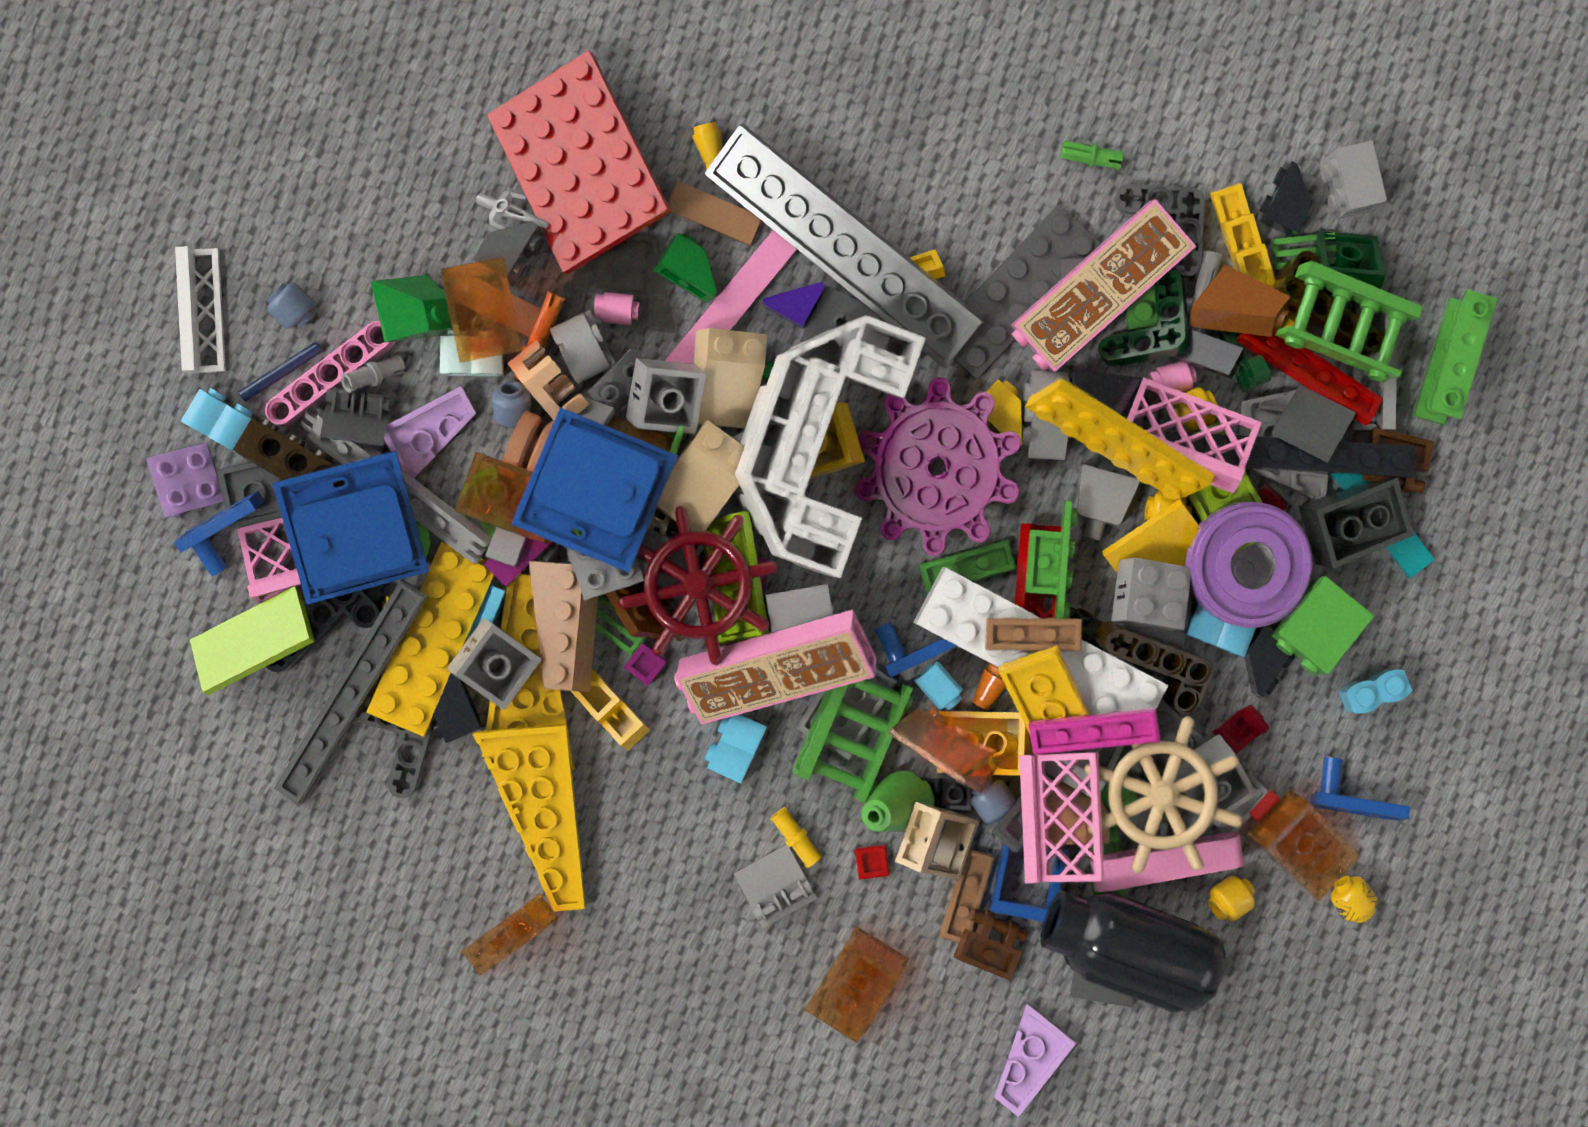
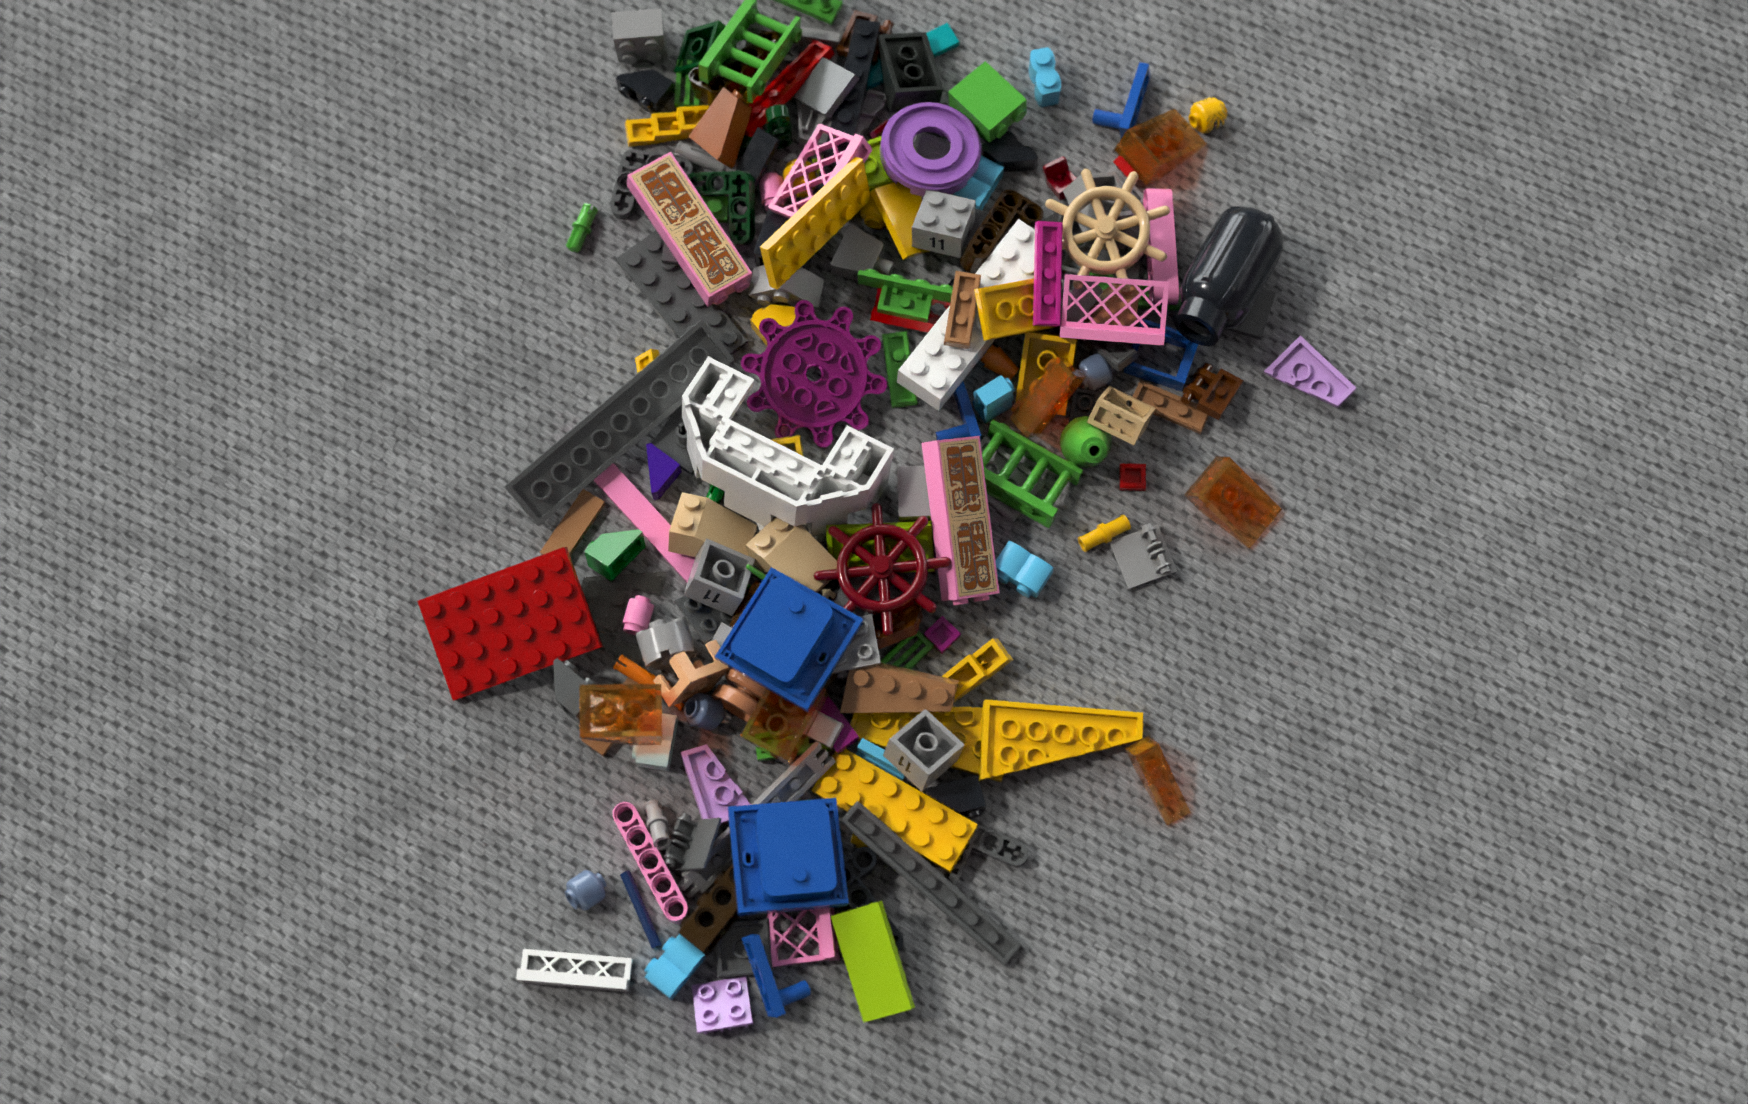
camera: 80 degrees left, 15 degrees down
(411, 308) = (607, 781): green slope -> none
(504, 208) = (536, 694): light grey piece -> none
(708, 141) = (513, 522): yellow cone -> none
(1231, 898) = (1196, 204): yellow head -> none

